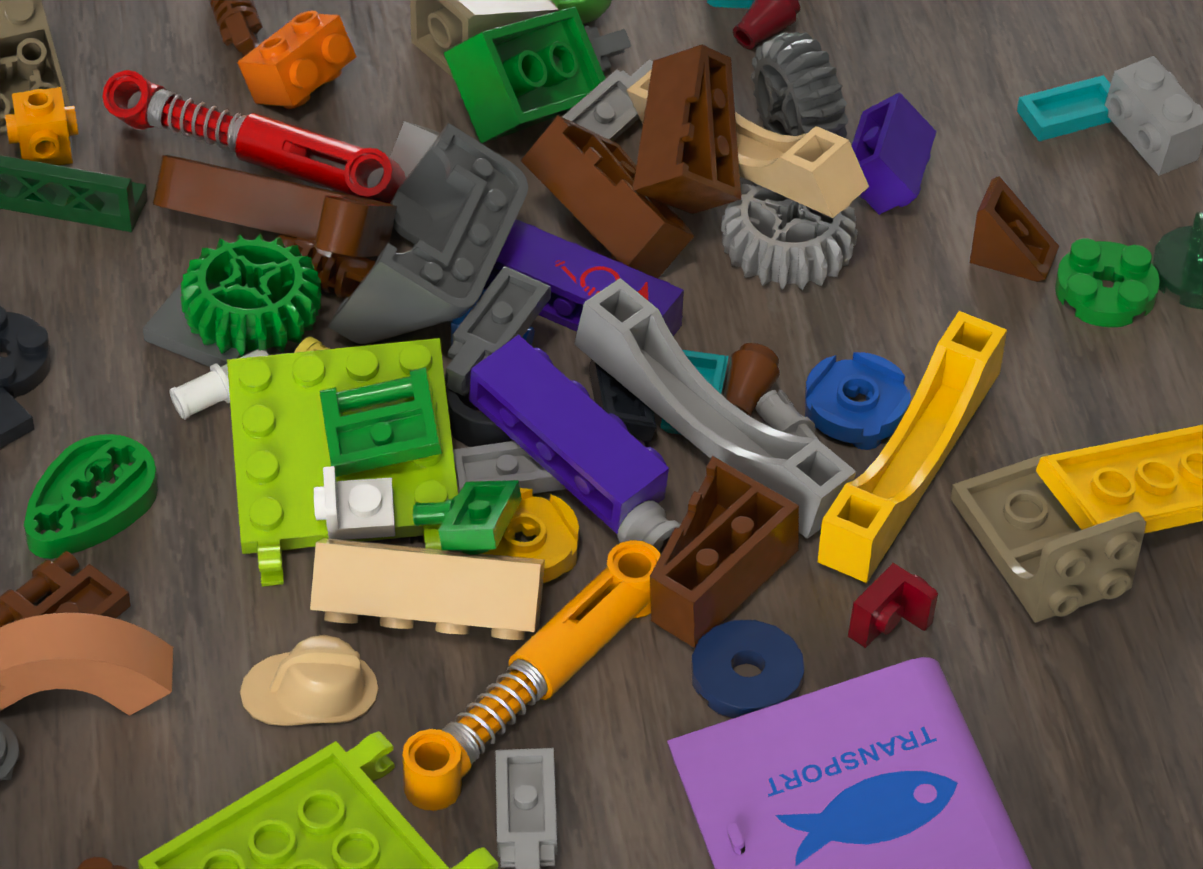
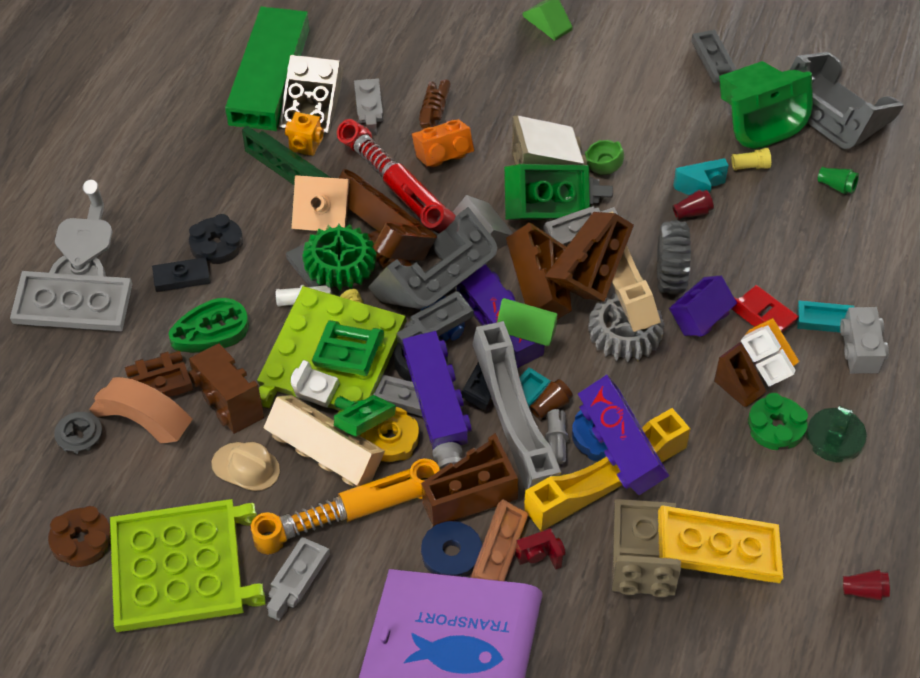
camera: 30 degrees right, 5 degrees up
(112, 42) = (368, 103): none -> light grey hinge
(153, 225) = (319, 202): none -> light nougat tile
(200, 572) = (226, 388): none -> reddish brown wedge
(654, 268) = (528, 322): none -> bright green slope
(818, 622) = (500, 542): none -> nougat tile
(913, 379) = (623, 436): none -> dark purple brick
(1002, 141) = (758, 300): none -> red piece
(1042, 178) = (771, 351): none -> white hips

